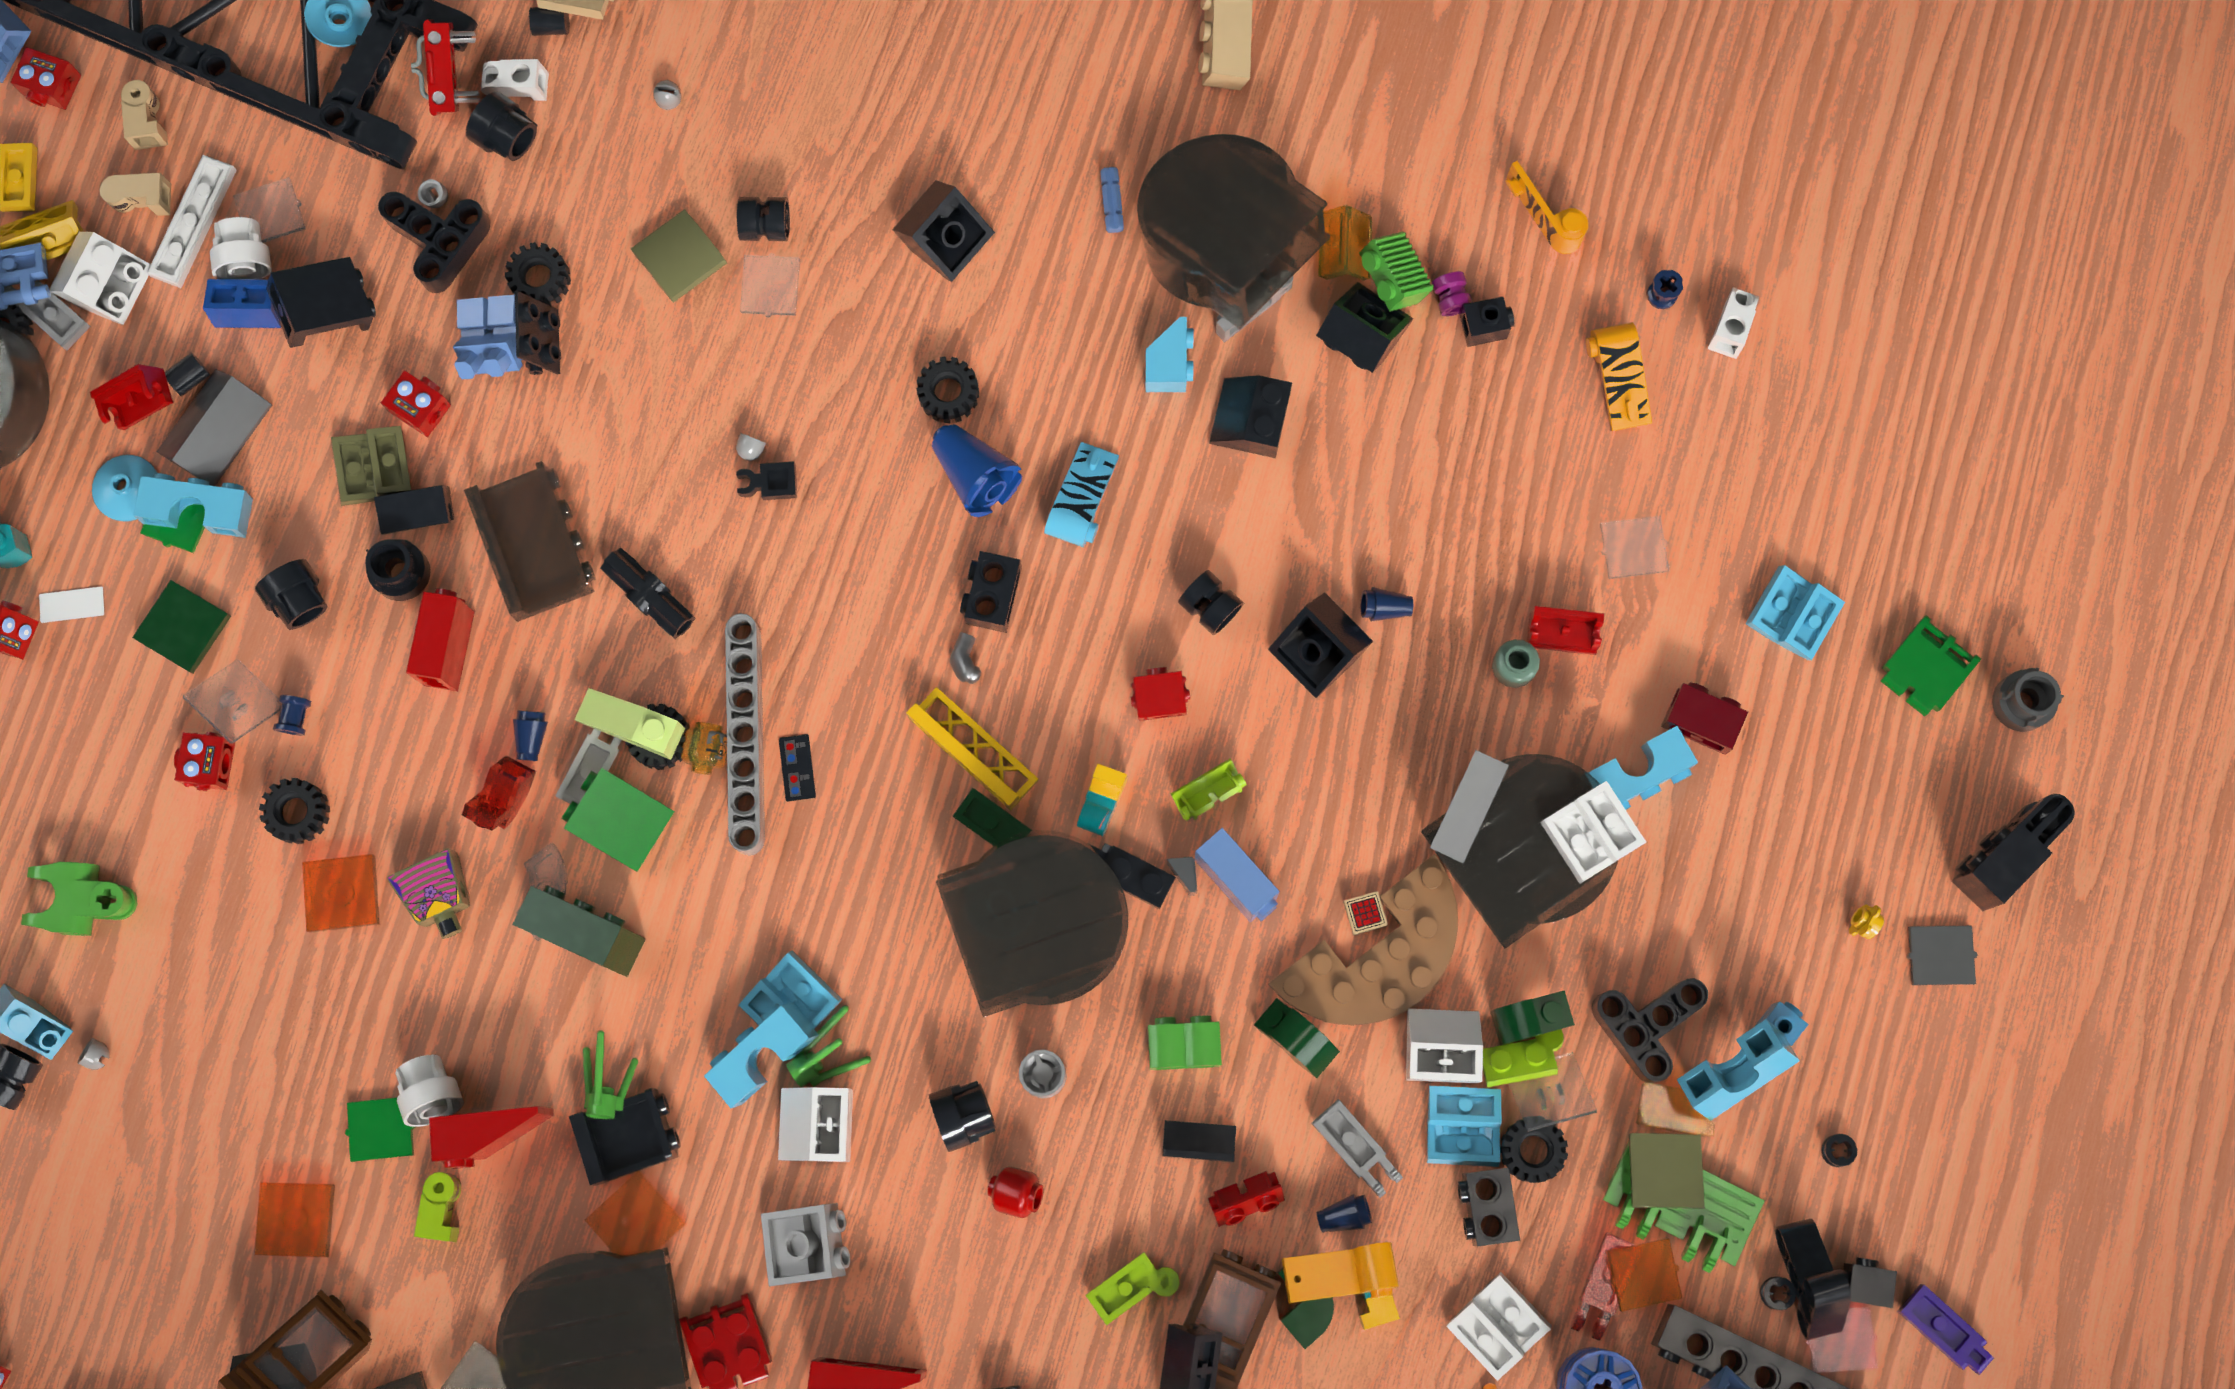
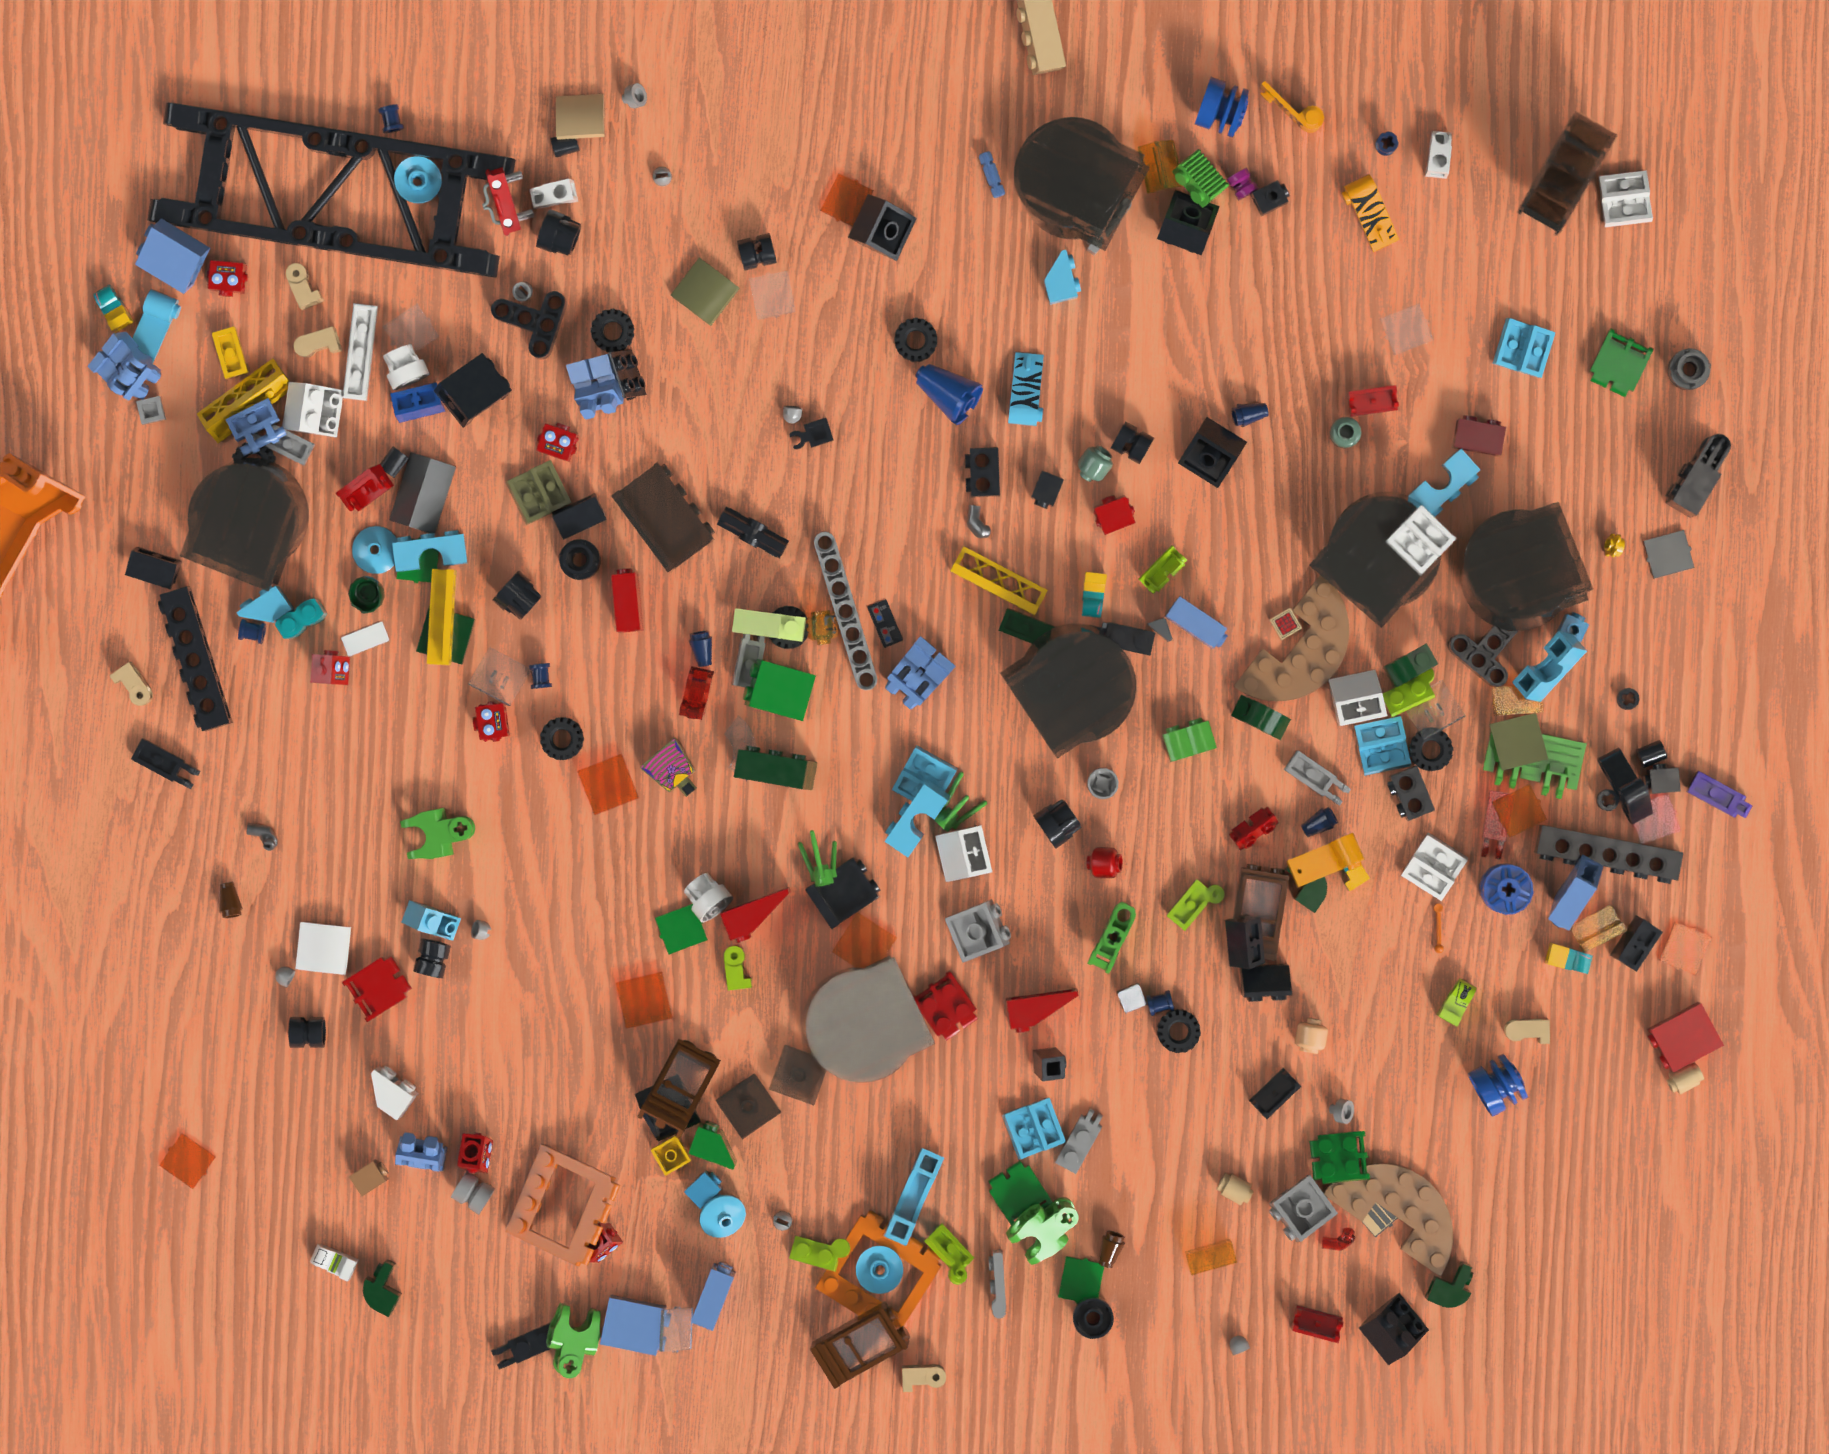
camera: 15 degrees left, 10 degrees up
(89, 541) = (366, 594): none -> dark green hair
(181, 598) = (441, 617): none -> yellow fence
(808, 851) = (912, 680): none -> medium blue hips
(903, 183) = (845, 199): none -> clear orange piece
(984, 1319) = (1108, 948): none -> bright green piece
(1074, 637) = (1046, 490): none -> black brick
(1151, 618) = (1095, 463): none -> sand green head
(1199, 1141) = (1214, 800): black panel -> none
(1251, 414) = (1126, 304): black slope -> none
(1449, 182) = (1222, 107): none -> blue wheel
(1469, 806) = (1337, 542): light grey tile -> none
(1731, 918) = (1523, 569): none -> clear smoke brick
(1858, 1240) = (1651, 753): none -> black piece
(1917, 373) = (1567, 172): none -> clear smoke brick
(1982, 445) = (1625, 198): none -> white slope

